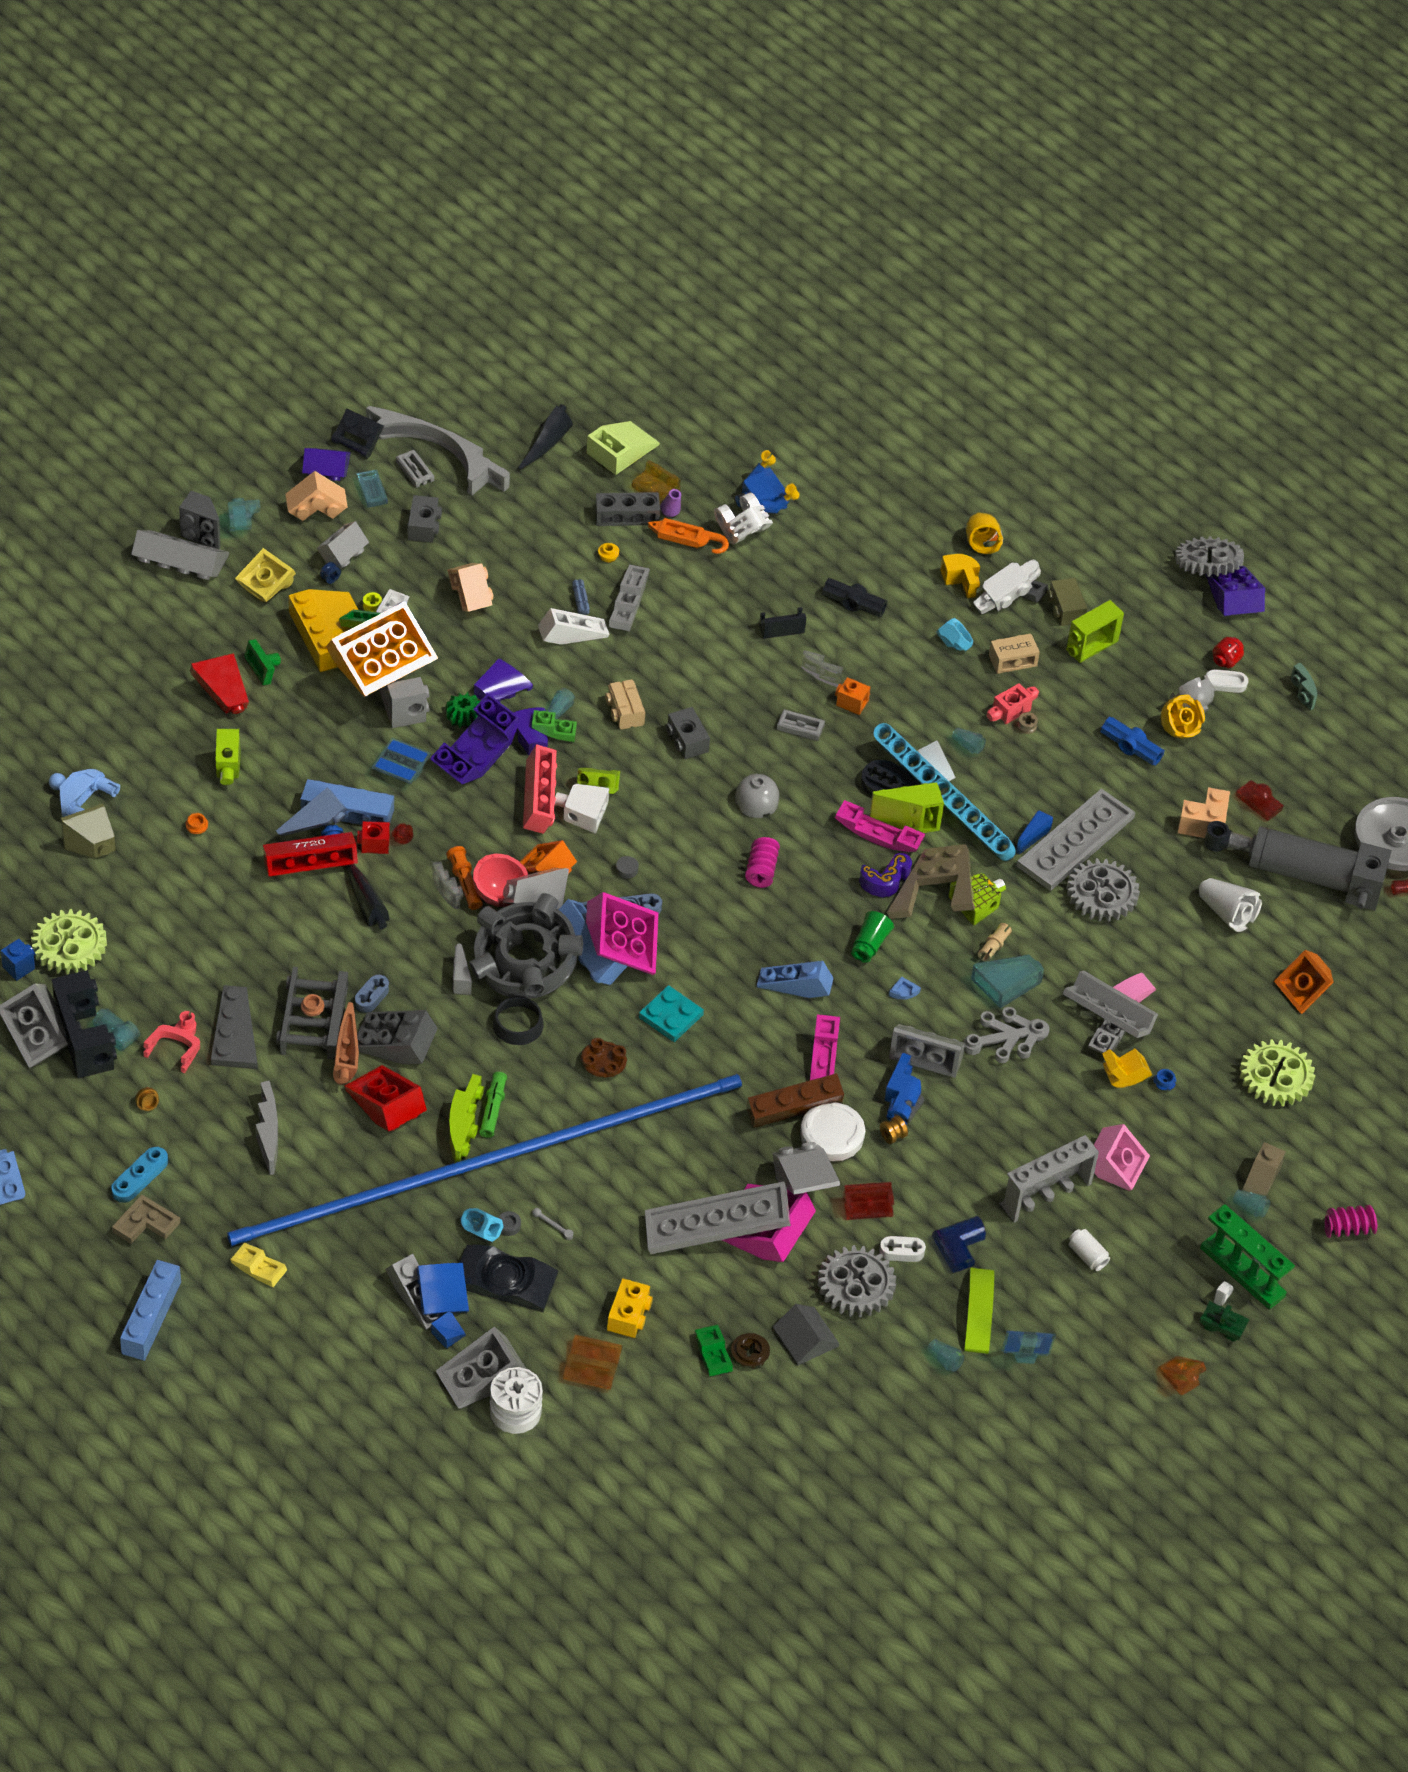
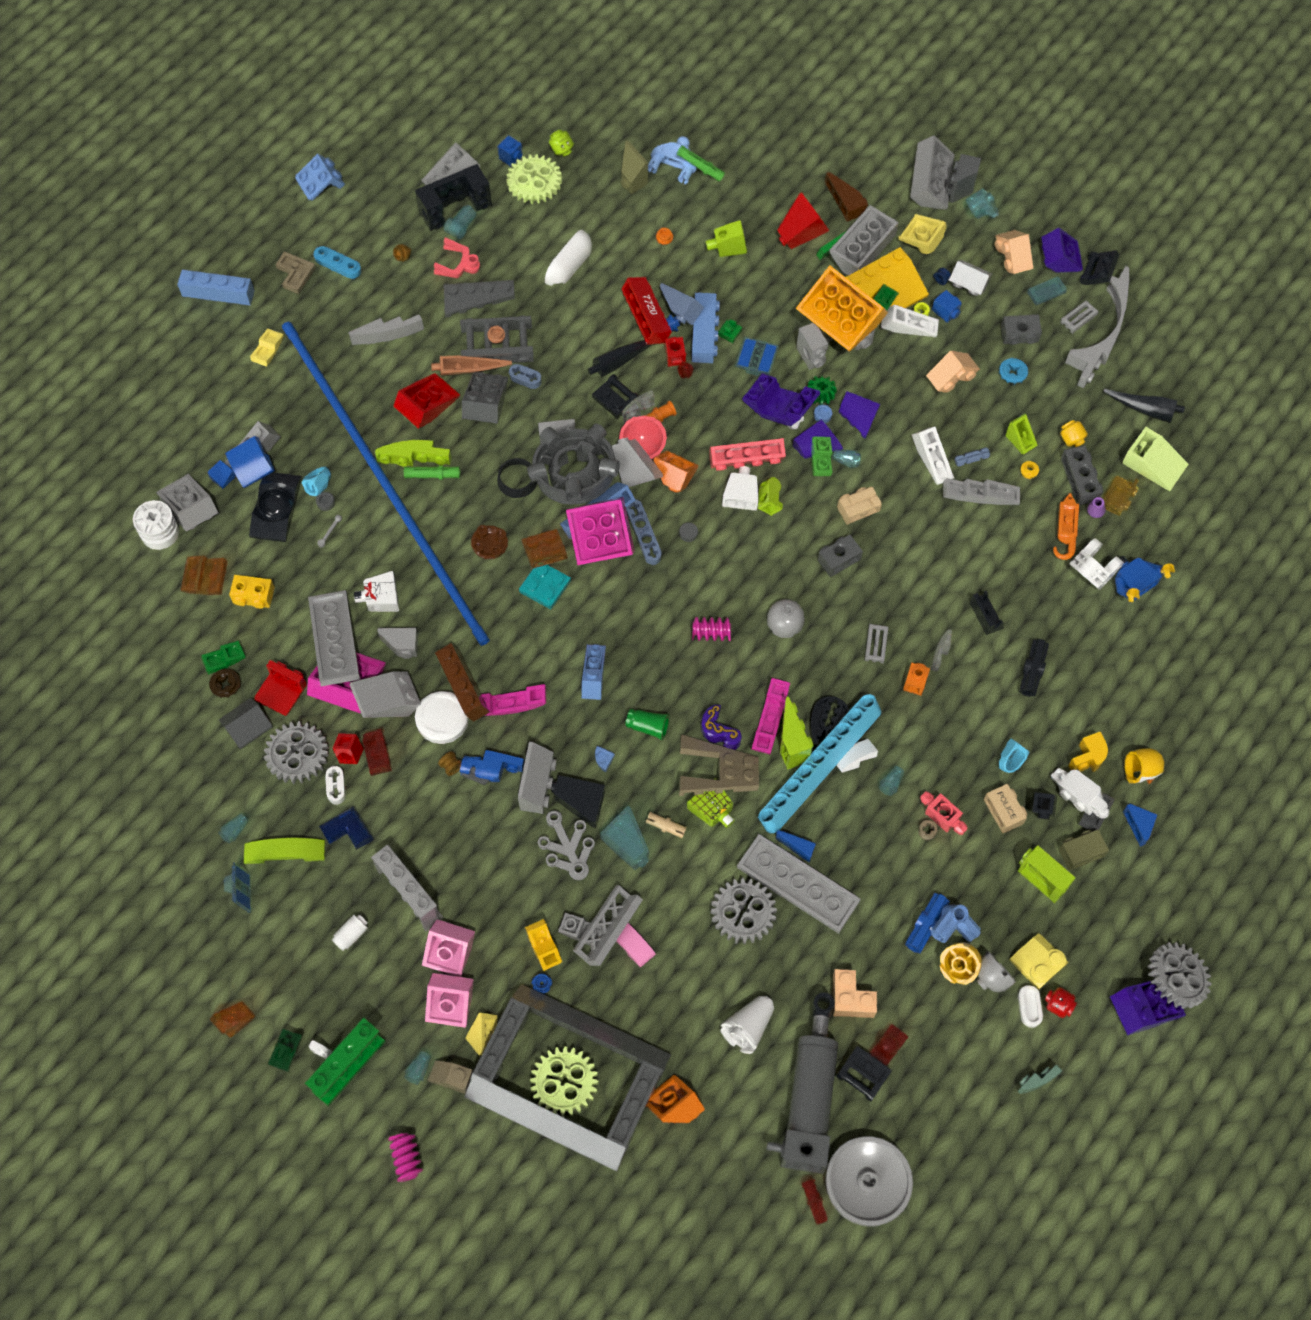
camera: 85 degrees right, 15 degrees up
(22, 902) = (561, 142): none -> lime head
(107, 761) = (697, 161): none -> bright green pin
(190, 638) = (846, 197): none -> reddish brown slope
(205, 922) = (569, 259): none -> white brick
(270, 627) = (864, 240): none -> light grey slope
(355, 780) = (730, 331): none -> green tile
(374, 576) = (947, 306): none -> blue brick
(426, 913) = (610, 399): none -> black plate
(480, 533) = (1013, 364): none -> dark azure gear
(563, 548) = (1021, 434): none -> lime slope
(573, 503) = (1073, 433): none -> yellow head
(625, 1003) = (544, 548): none -> clear orange plate
(656, 1173) = (379, 593): none -> white torso
(727, 1160) = (400, 641): none -> light grey slope
(768, 1289) = (281, 688): none -> red bracket
(863, 1223) = (348, 748): none -> red brick
(956, 1011) = (580, 798): none -> black slope
(1017, 618) = (1044, 805): none -> black brick
(1046, 551) = (1140, 822): none -> blue slope
(1140, 713) = (954, 918): none -> medium blue piece
(1177, 1163) = (448, 1000): none -> bright pink slope
(1181, 662) = (1039, 961): none -> light yellow slope
(1220, 1142) = (481, 1031): none -> light yellow slope
(1284, 813) = (867, 1067): none -> black plate
(1342, 1028) = (603, 1150): none -> dark grey slope

